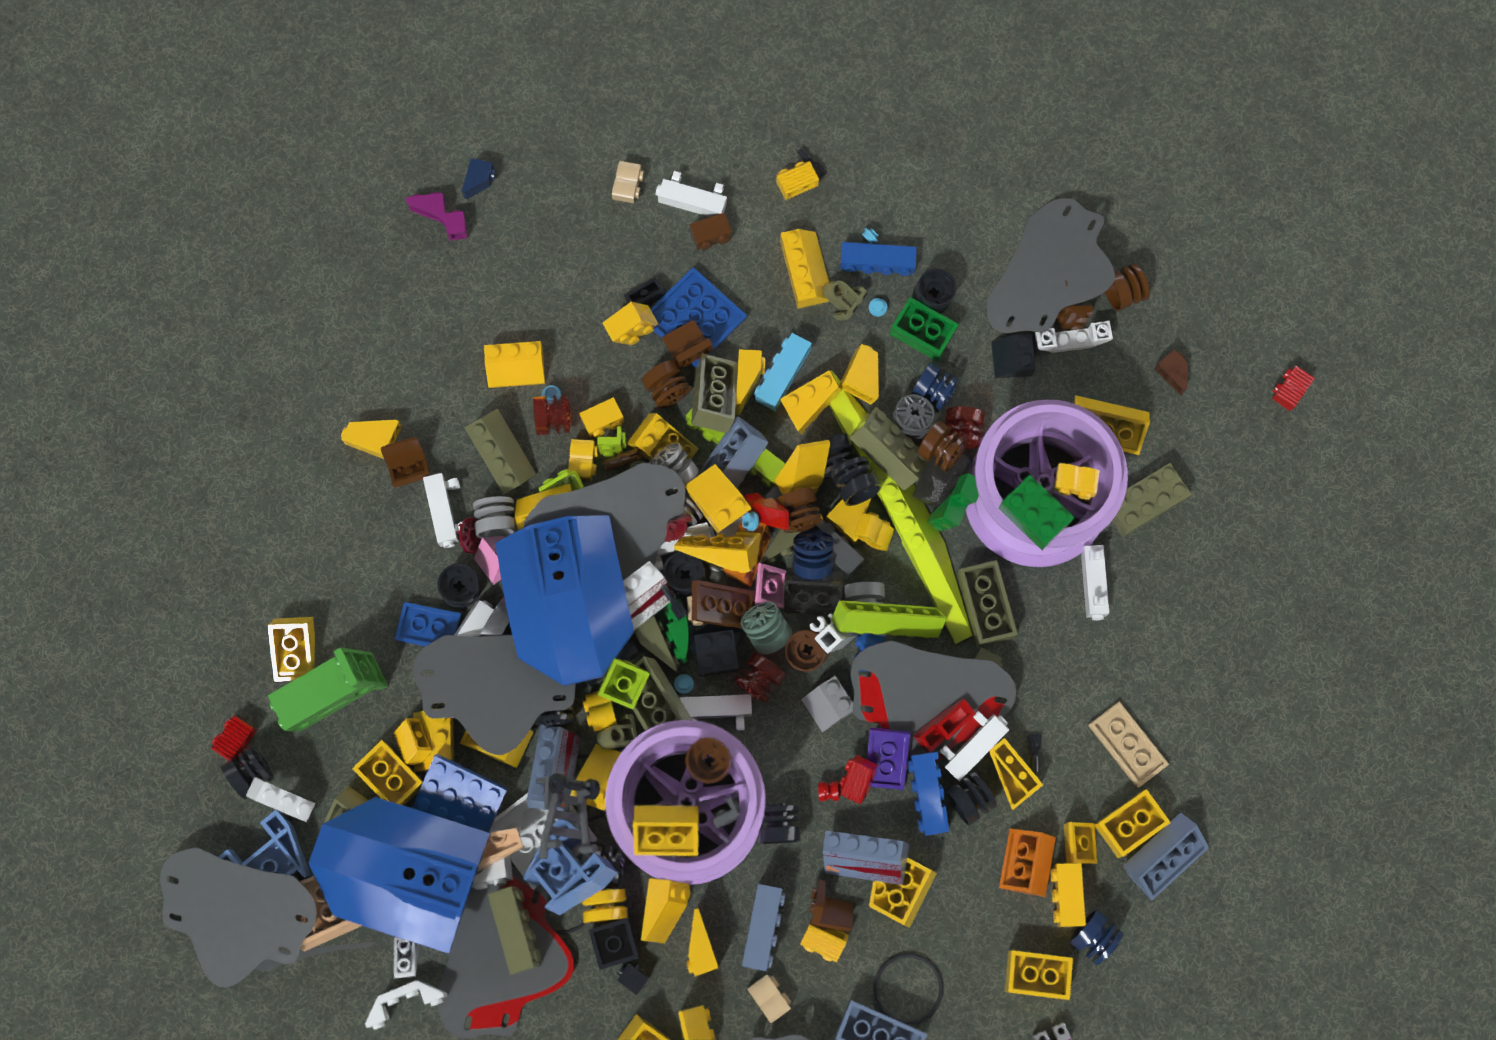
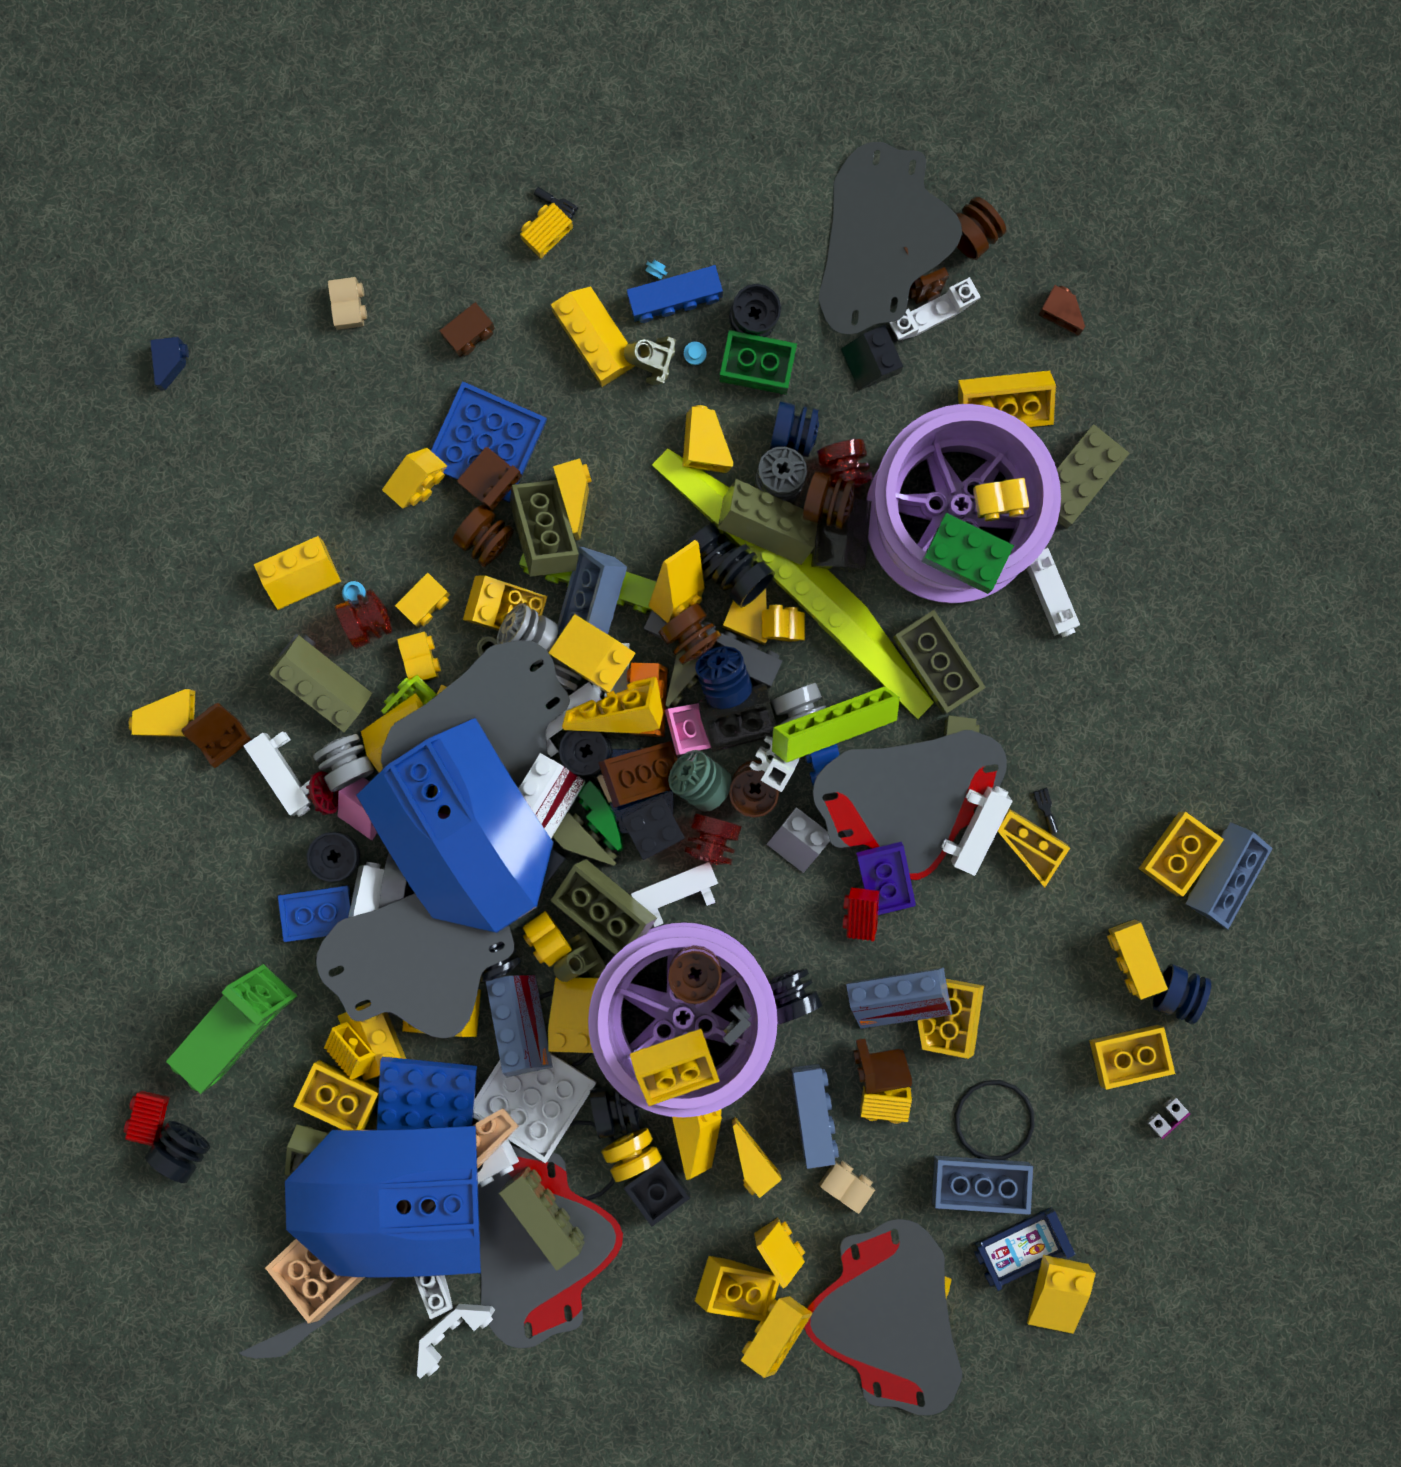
camera: 20 degrees left, 10 degrees up
(234, 913) = (225, 1310): dark grey piece -> none
(280, 799) = (220, 1171): white arch -> none
(280, 854) = (243, 1243): medium blue wedge -> none
(292, 647) = (171, 992): yellow slope -> none
(434, 207) = (131, 415): magenta arch -> none
(552, 796) = (531, 1061): dark grey hand -> none
(564, 874) = (572, 1138): medium blue wedge -> none
(612, 445) = (445, 632): lime bracket -> none
(622, 459) = (465, 641): reddish brown pin -> none
(623, 683) = (562, 903): lime slope -> none
(632, 977) = (690, 1218): black brick -> none
(645, 293) = (418, 433): black brick -> none
(676, 607) = (589, 793): black piece -> none
(677, 528) = (557, 703): dark red piece -> none
(683, 684) = (629, 874): medium azure plate -> none
(691, 198) = (429, 297): white brick -> none
(750, 521) = (639, 666): medium azure plate -> none
(768, 511) = (653, 648): red slope -> none
(783, 372) = (613, 471): medium azure brick -> none
(810, 400) = (656, 495): yellow wedge -> none
(825, 789) = (829, 938): red wheel -> none
(928, 793) = (945, 900): blue wedge -> none
(944, 725) = (938, 820): red slope -> none
(953, 508) = (865, 568): green arch -> none
(968, 800) = (994, 890): black wheel -> none
(1027, 862) = (1079, 937): orange slope -> none
(1080, 843) = (1130, 895): yellow slope -> none
(1128, 744) = (1147, 765): tan tile -> none
(1292, 388) = (1205, 282): red brick -> none

